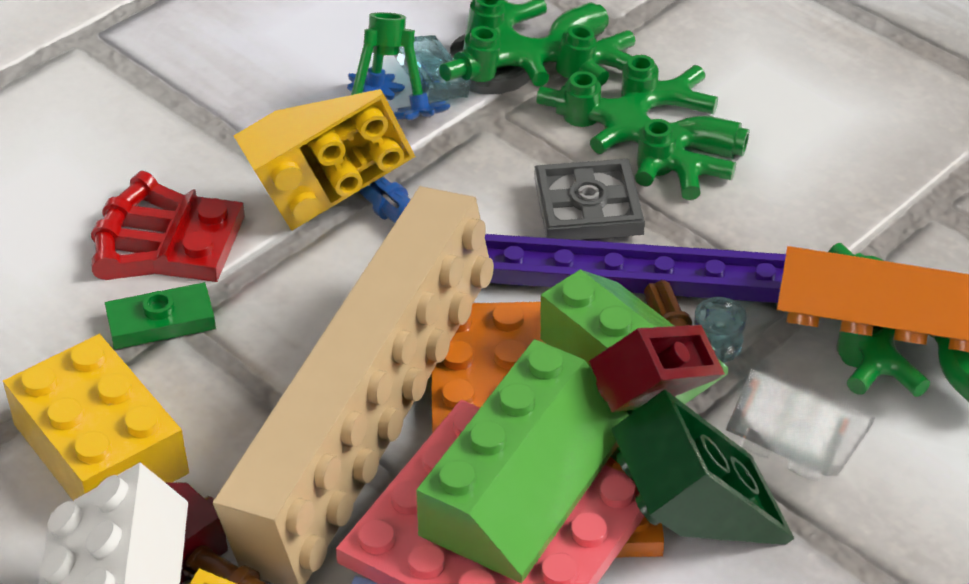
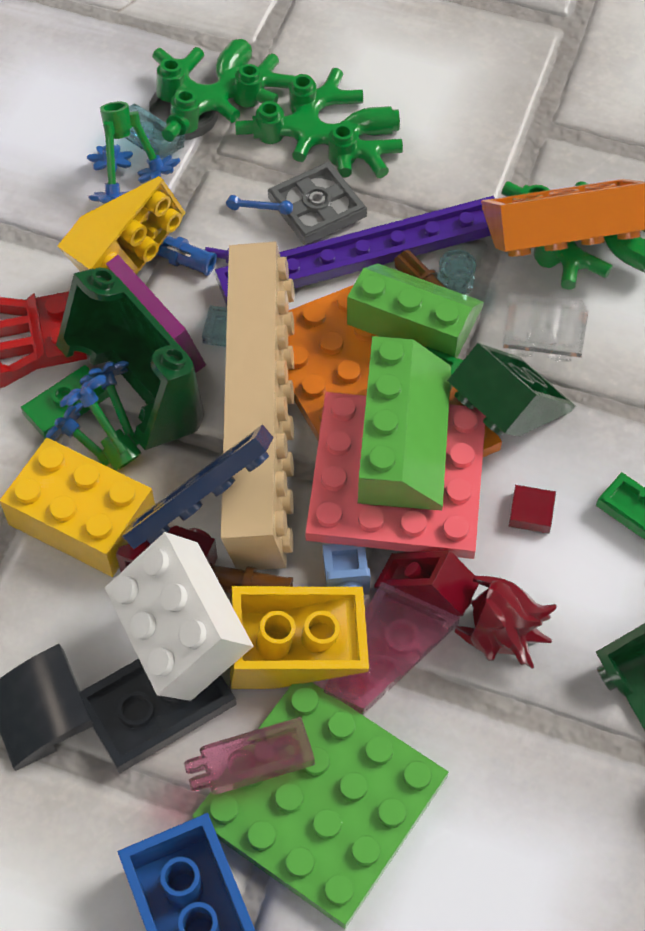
camera: 25 degrees left, 15 degrees up
(183, 381) = (118, 448): none -> plant
(235, 426) = (214, 478): none -> dark blue plate
(244, 246) = (114, 327): none -> dark green windscreen
(305, 237) = (157, 309): none -> magenta plate
(540, 189) = (235, 202): none -> blue hinge
(654, 361) = (460, 328): dark red slope -> none

